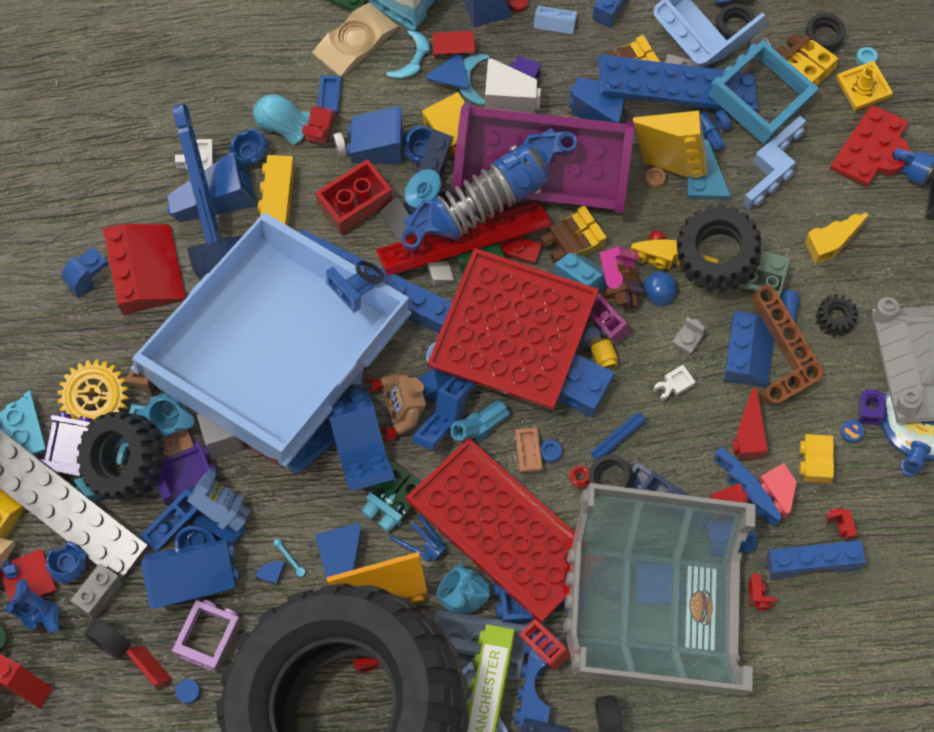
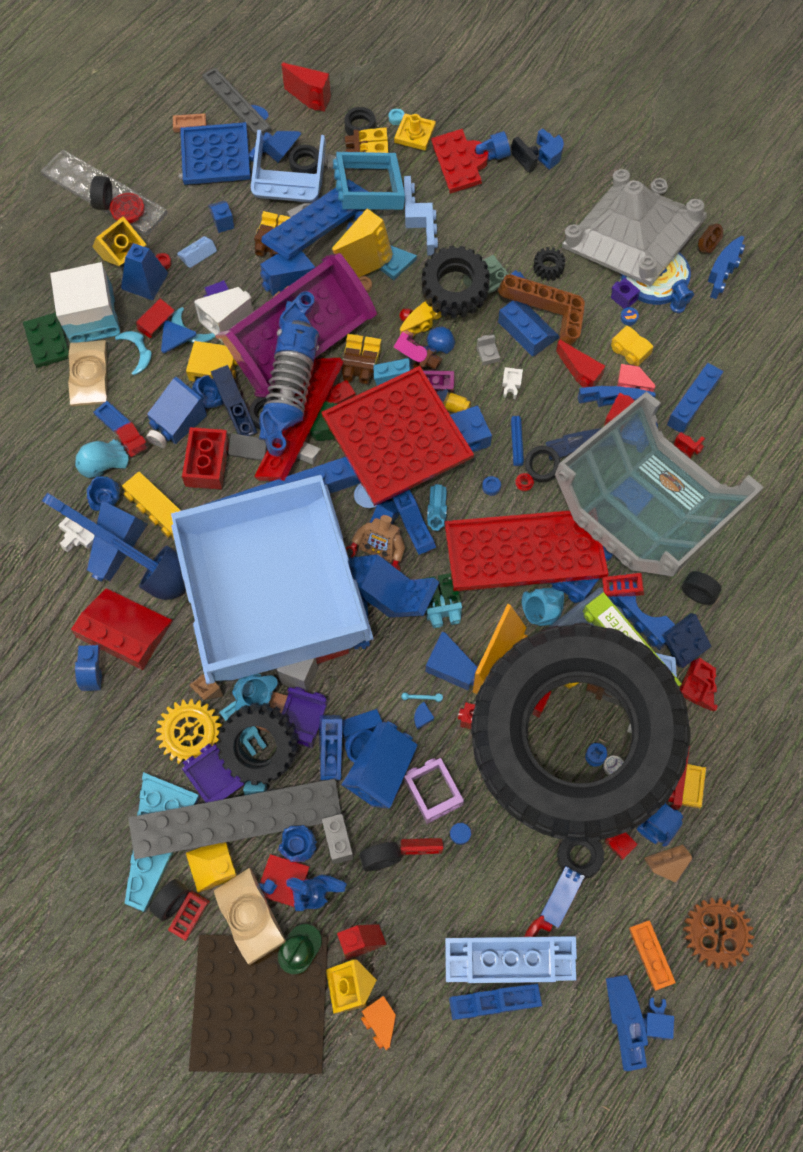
camera: 50 degrees left, 0 degrees up
(218, 502) = (348, 707): medium blue hips -> none
(355, 286) = (283, 499): blue piece -> none
(422, 186) = (239, 411): dark azure dish -> none
(433, 547) = (495, 602): blue plant -> none
(528, 450) = (480, 497): nougat plate -> none
(829, 241) = (498, 231): yellow slope -> none
(846, 524) = (686, 365): red bracket -> none

